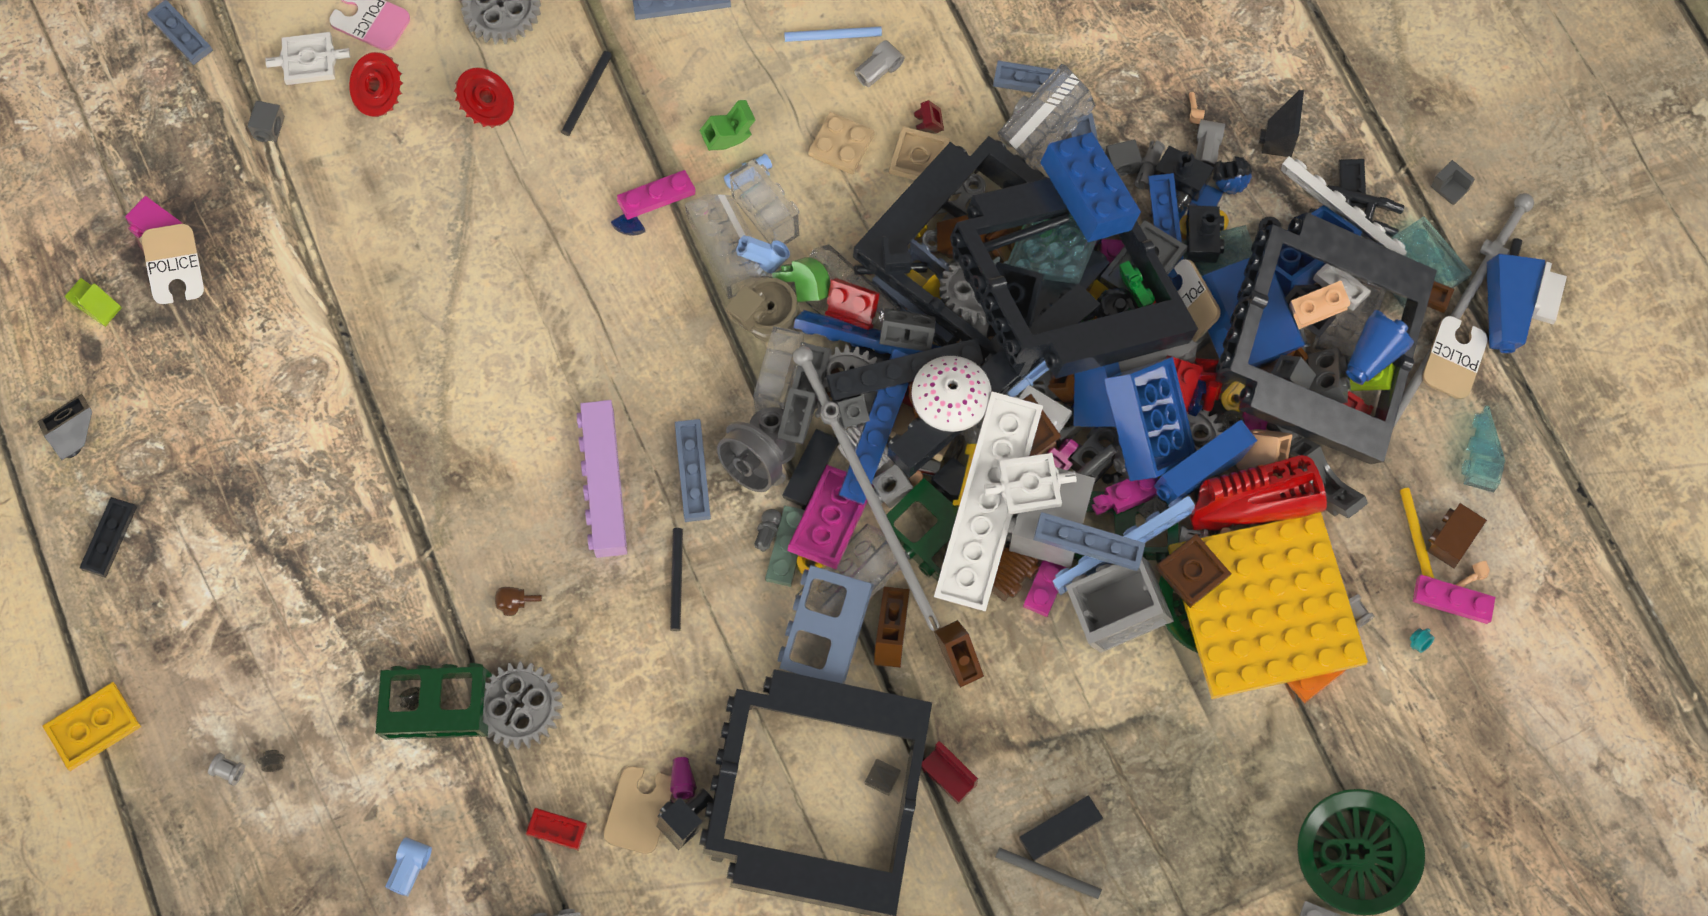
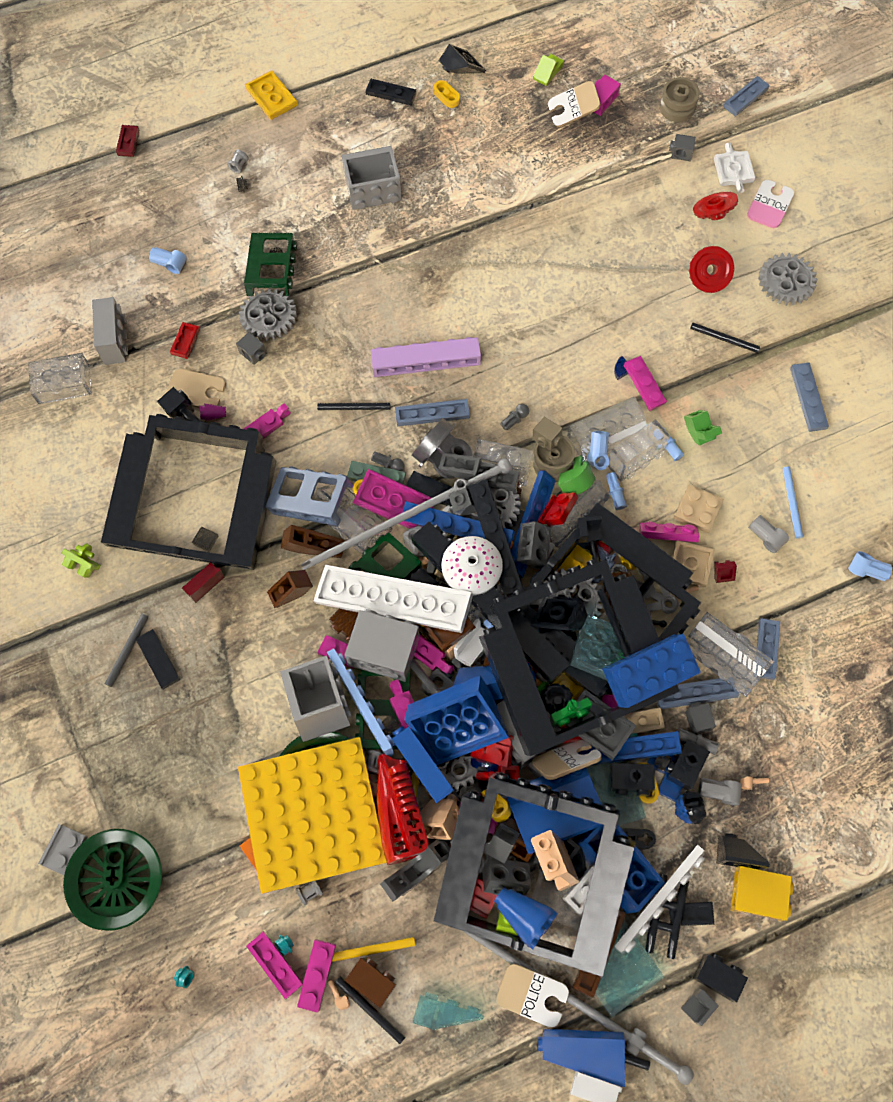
camera: 90 degrees right, 0 degrees up
(126, 450) = (449, 96): none -> yellow plate
(180, 119) = (679, 99): none -> dark tan wheel
(288, 554) = (371, 177): none -> light grey container
(511, 599) = (342, 308): reddish brown piece -> none
(578, 725) = (251, 348): none -> dark grey brick
(694, 353) = (521, 411): none -> dark grey axle
(702, 701) = (270, 420): none -> dark pink plate
(816, 238) = (616, 491): none -> light blue axle
(877, 178) = (669, 532): none -> dark pink plate
(1030, 483) = (396, 620): white plate -> none
(1089, 541) = (348, 664): sand blue plate -> none
(1193, 570) = (335, 752): reddish brown tile -> none
(1326, 110) = (762, 893): none -> yellow panel
(1419, 159) = (720, 977): none -> black brick
(1445, 649) = (274, 965): none -> dark pink plate
(1468, 759) = (184, 977): none -> teal plate
(1485, 540) = (370, 1010): none -> black bar

